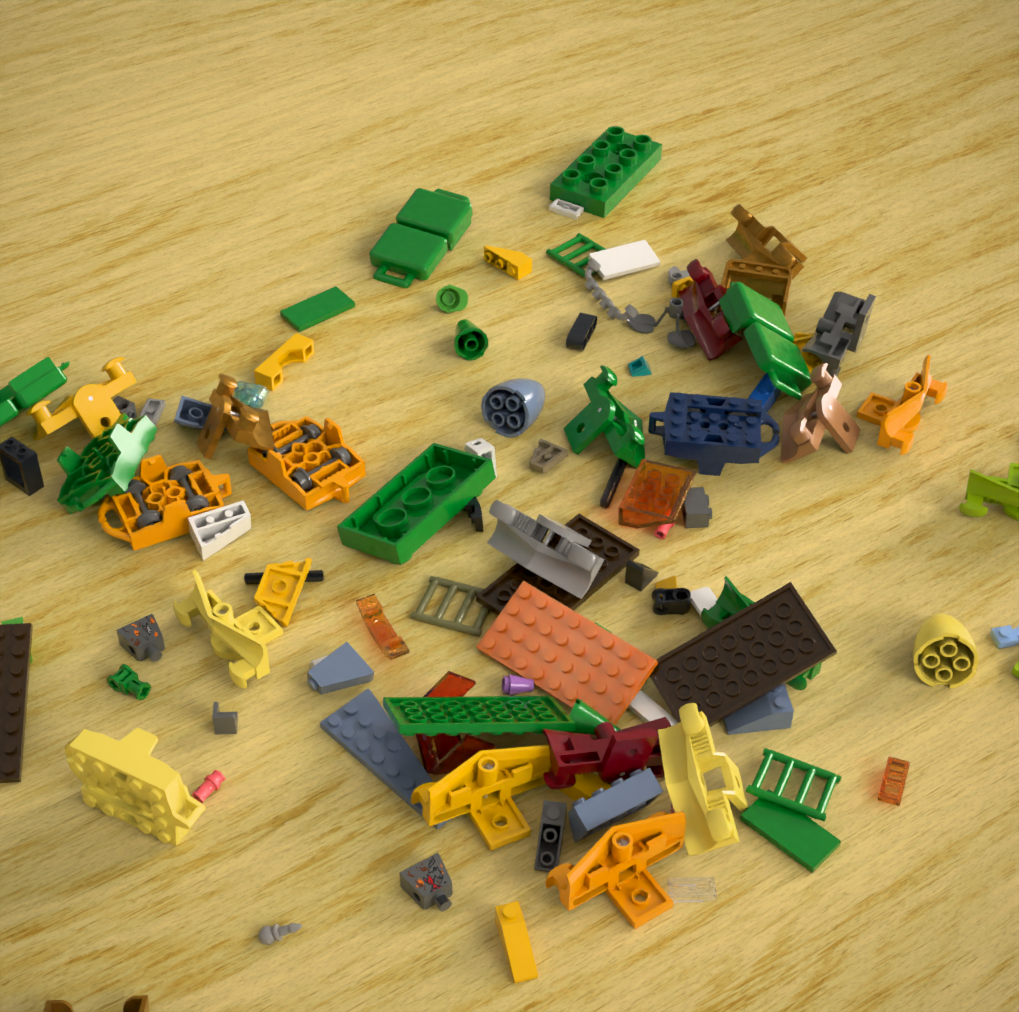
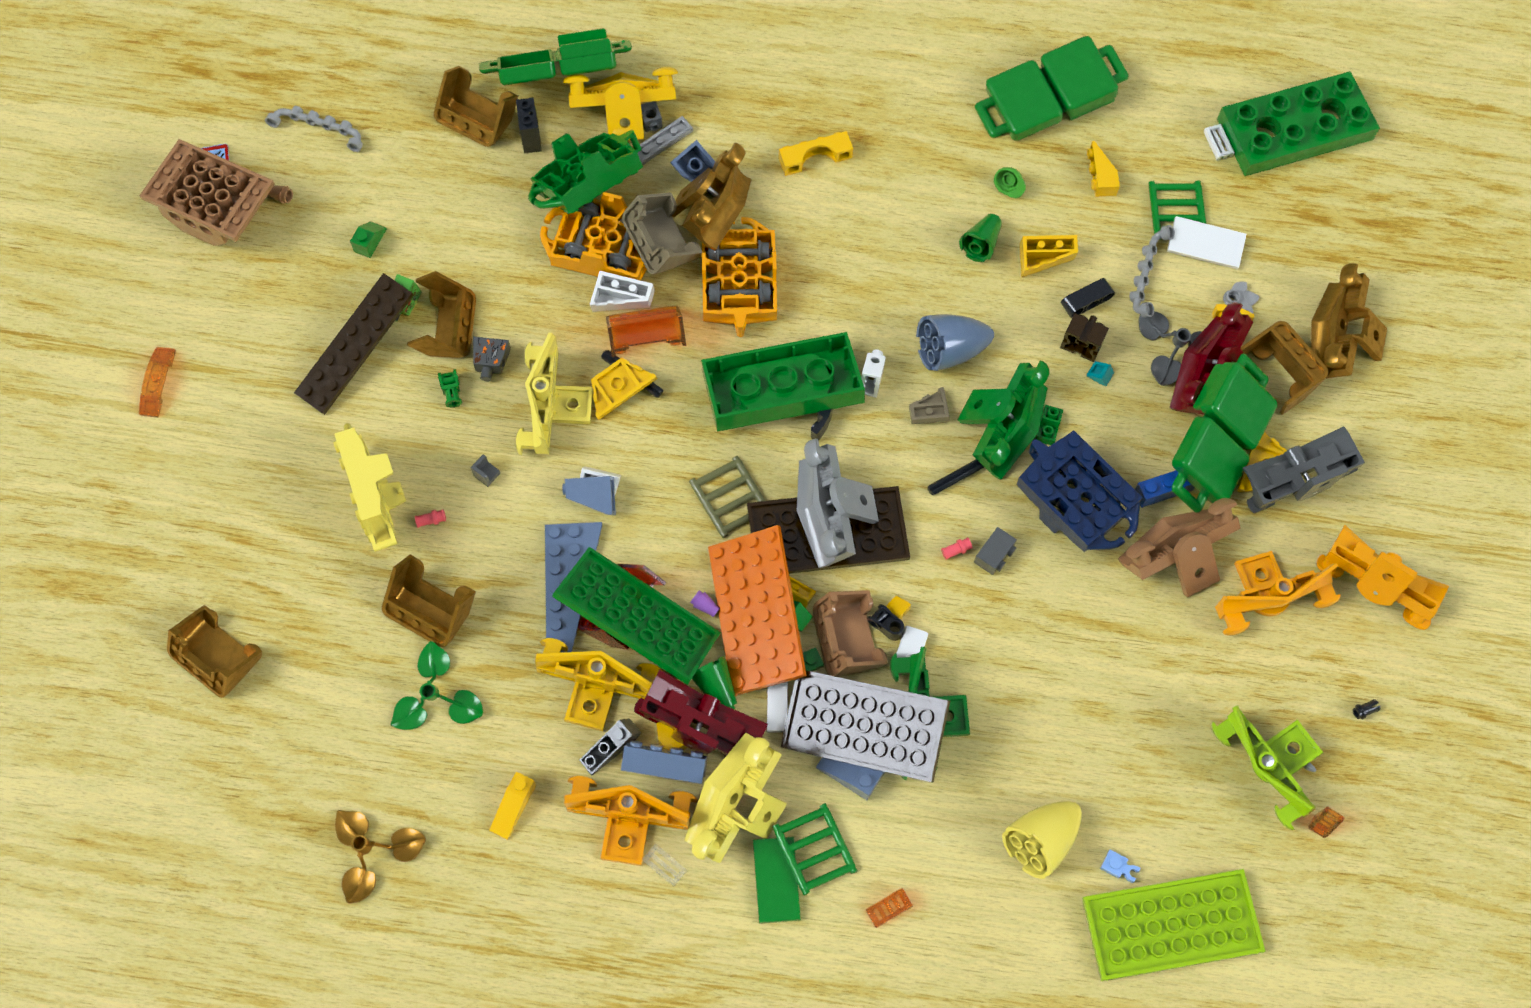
camera: 40 degrees right, 25 degrees up
(77, 631) = (454, 319): none -> pearl gold windscreen
(198, 461) = (656, 234): none -> dark tan windscreen
(251, 394) = (759, 169): clear light blue piece -> none
(269, 536) = (645, 327): none -> clear orange windscreen
(269, 934) = (375, 666): light grey bar -> none
(275, 852) = (424, 606): none -> pearl gold windscreen
(317, 309) = (895, 110): green tile -> none
(345, 946) = (409, 713): none -> green plant
(380, 628) = (657, 477): clear orange slope -> none
(428, 883) = (499, 714): dark grey torso -> none
(523, 321) = (1044, 252): none -> yellow wedge
(608, 348) = (1084, 336): none -> dark brown brick
(639, 575) = (891, 579): black slope -> none
(642, 412) = (1049, 425): none -> green slope
(644, 629) = (846, 633): none -> medium nougat windscreen
(655, 495) = (971, 517): clear orange slope -> none
(963, 358) = (1385, 578): none -> light orange piece

